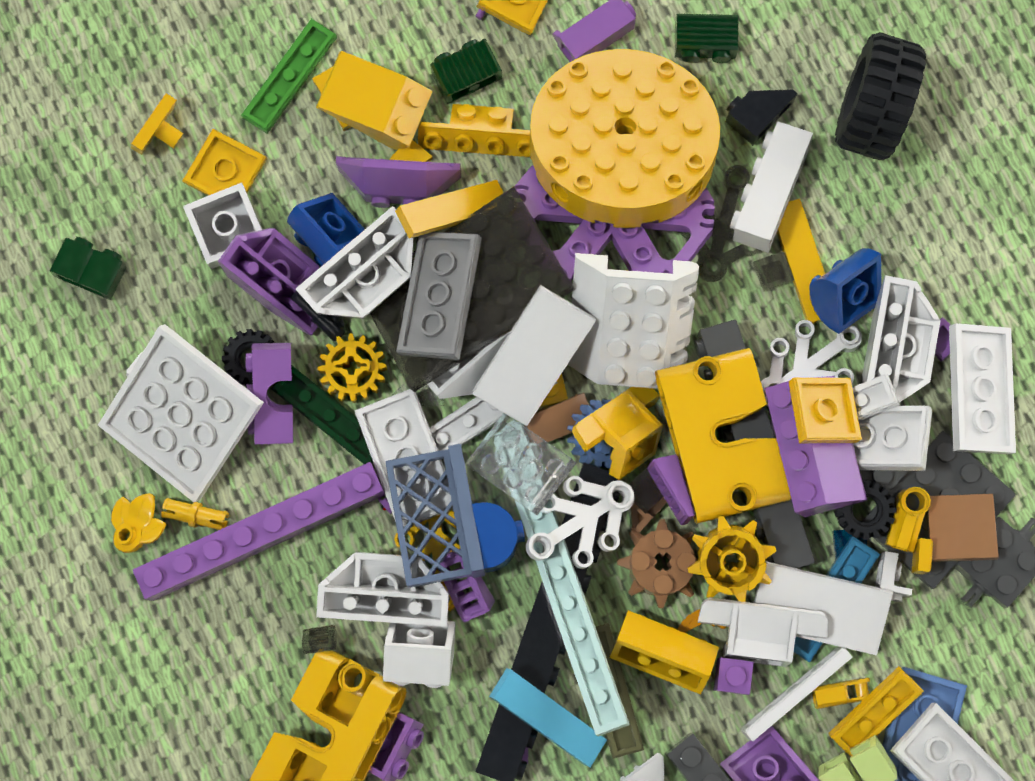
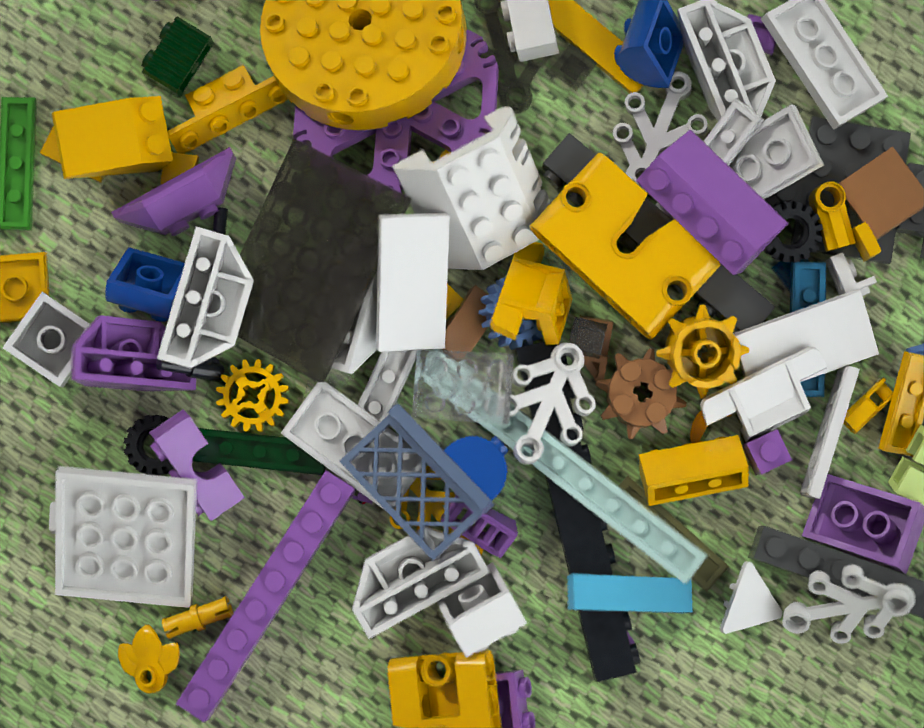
camera: 35 degrees left, 5 degrees up
(319, 639) = (382, 656): clear smoke tile -> none
(439, 295) = (291, 280): light grey tile -> none
(445, 209) = (246, 196): yellow tile -> none
(671, 482) = (606, 317): medium lavender slope -> none
(824, 410) = (702, 166): yellow tile -> none

